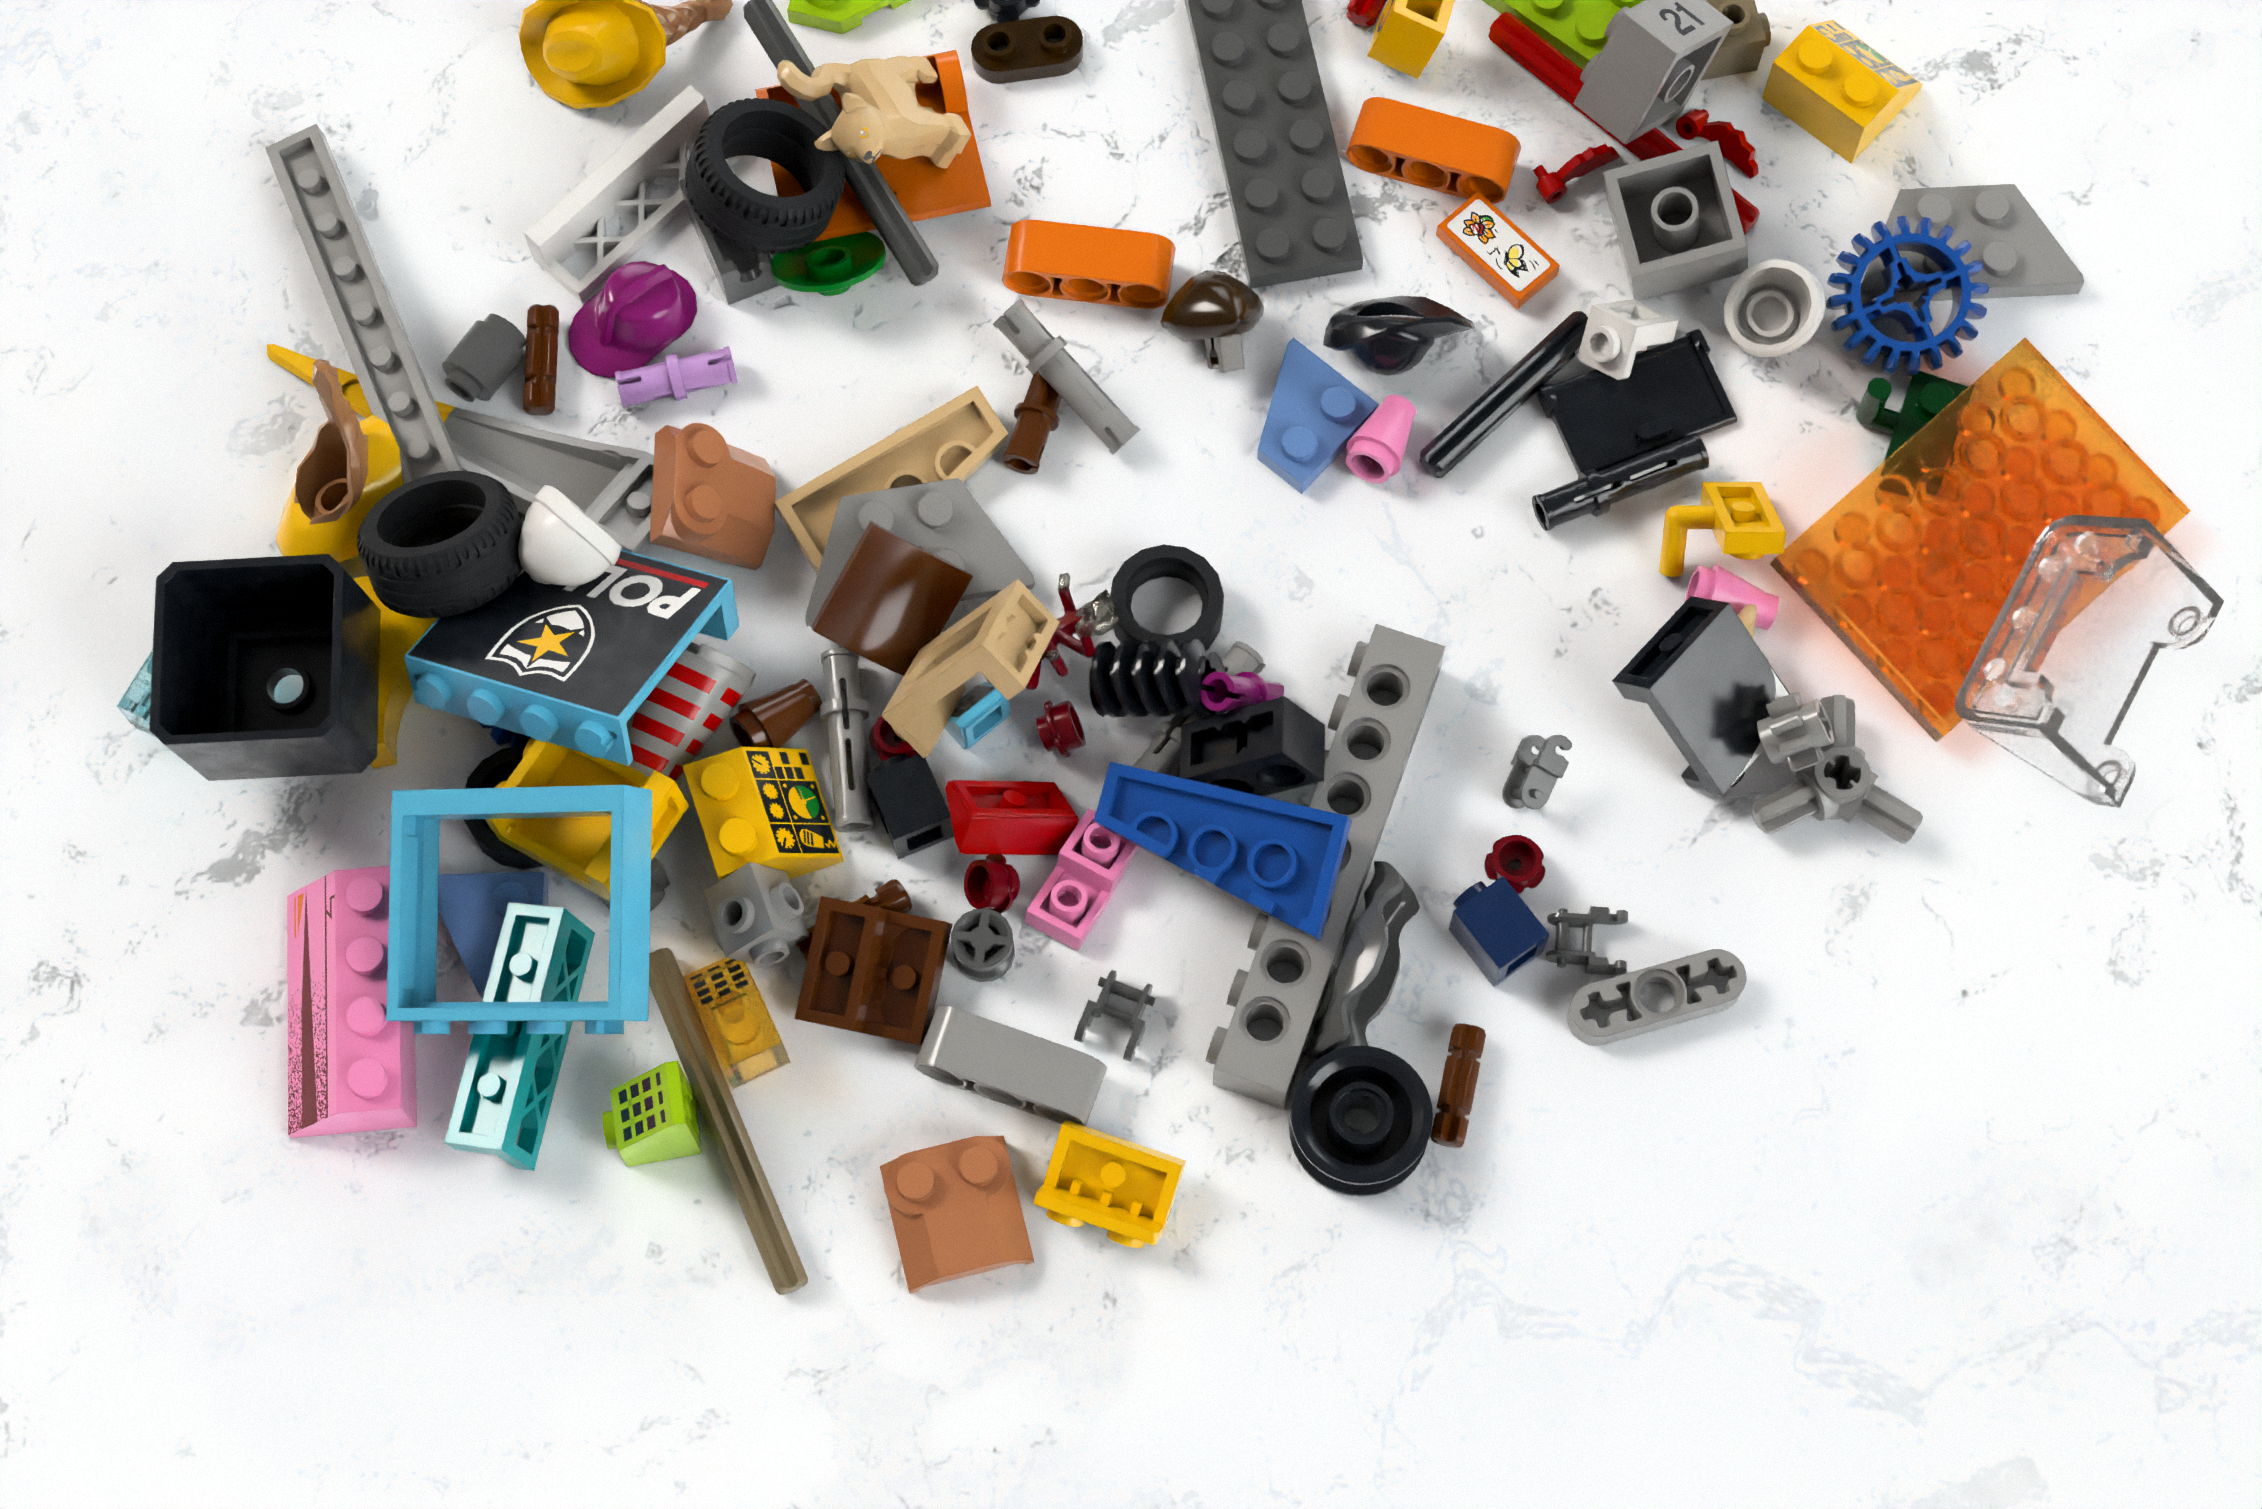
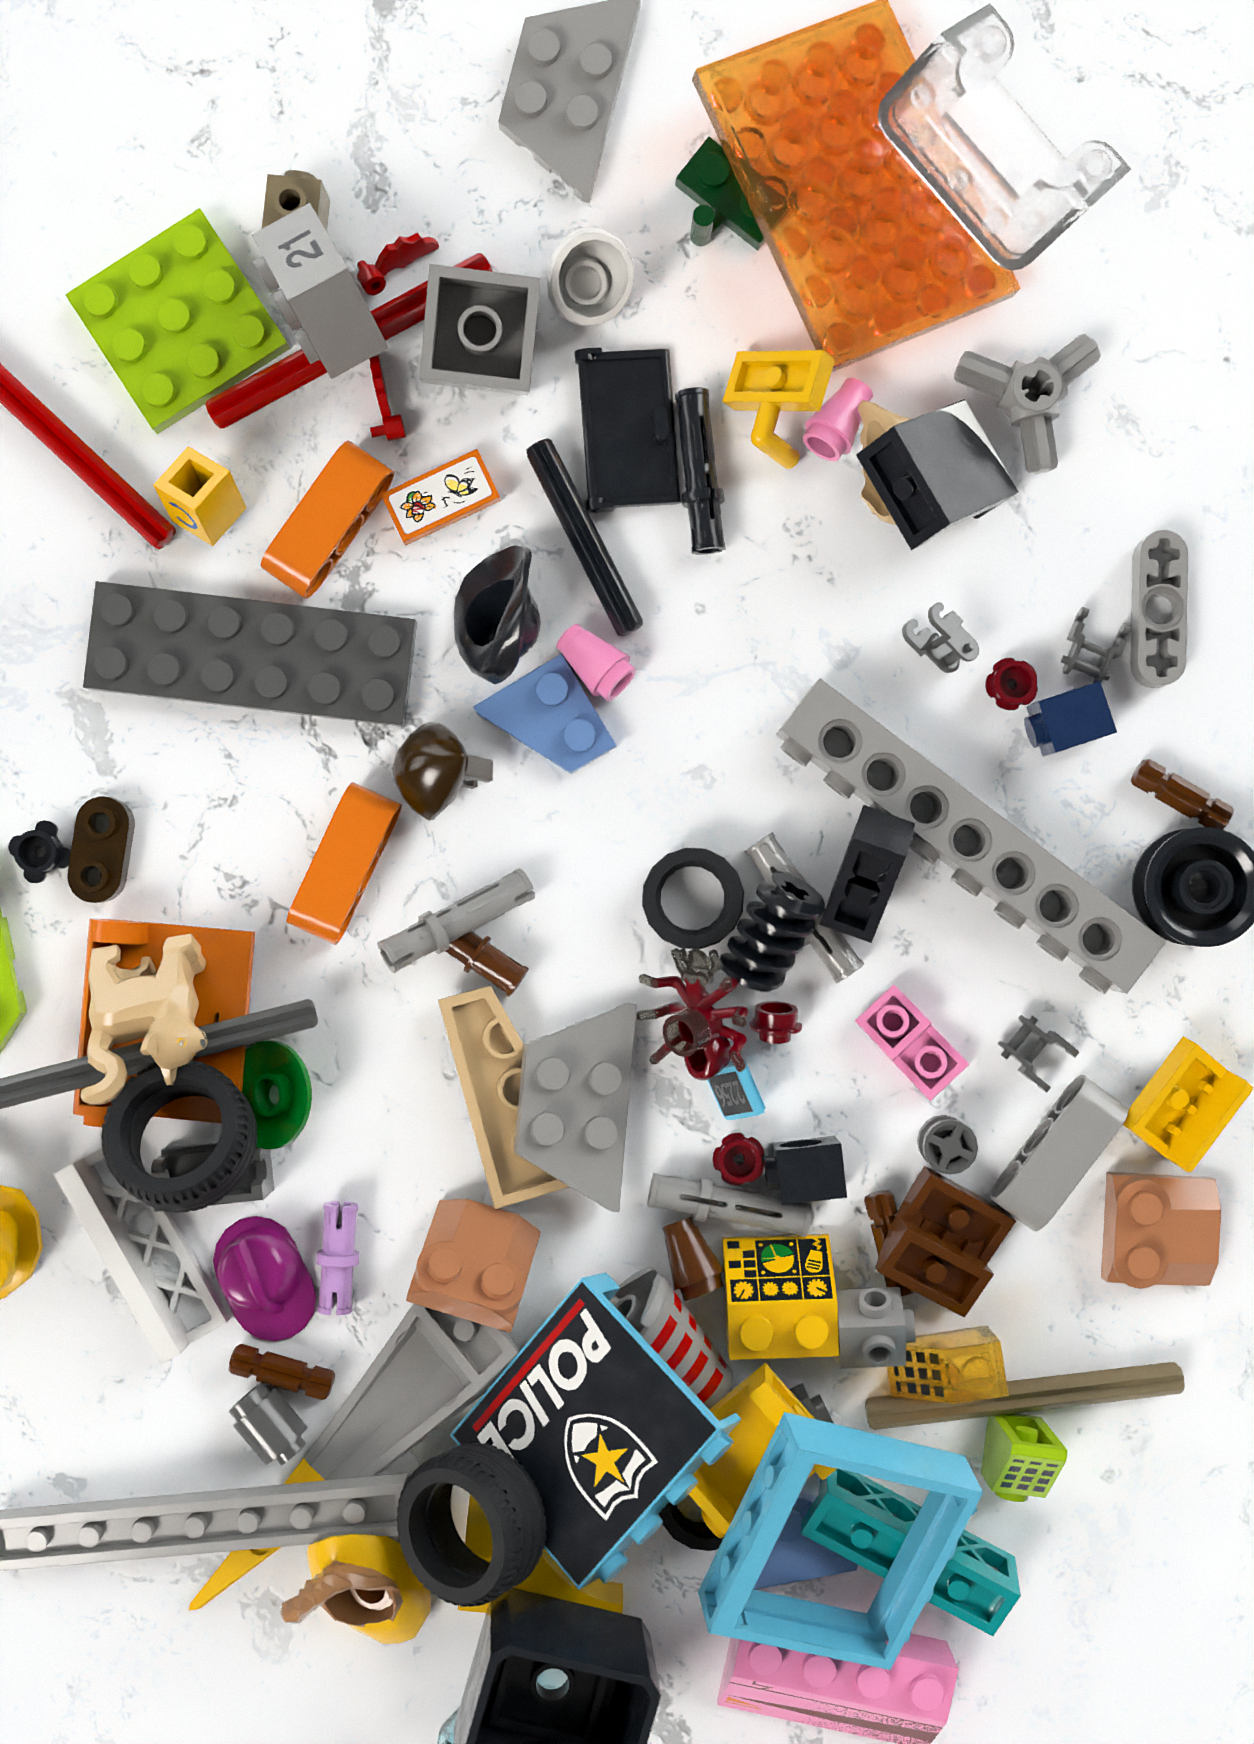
camera: 75 degrees left, 20 degrees up
(563, 542) = (506, 1416): white hat -> none
(890, 599) = (631, 1139): reddish brown slope -> none
(991, 883) = (897, 1121): dark red plate -> none
(1007, 646) = (743, 1069): tan panel -> none
(1009, 817) = (846, 1091): red slope -> none
(1238, 691) = (811, 863): magenta axle -> none
(1246, 844) = (952, 905): blue wing -> none
(1368, 964) = (1113, 874): dark grey piece -> none
(1619, 331) = (566, 417): white bracket -> none
(1795, 731) = (999, 412): light grey gear -> none
(1838, 88) = (380, 131): yellow slope -> none
(1897, 269) = (619, 111): blue gear -> none

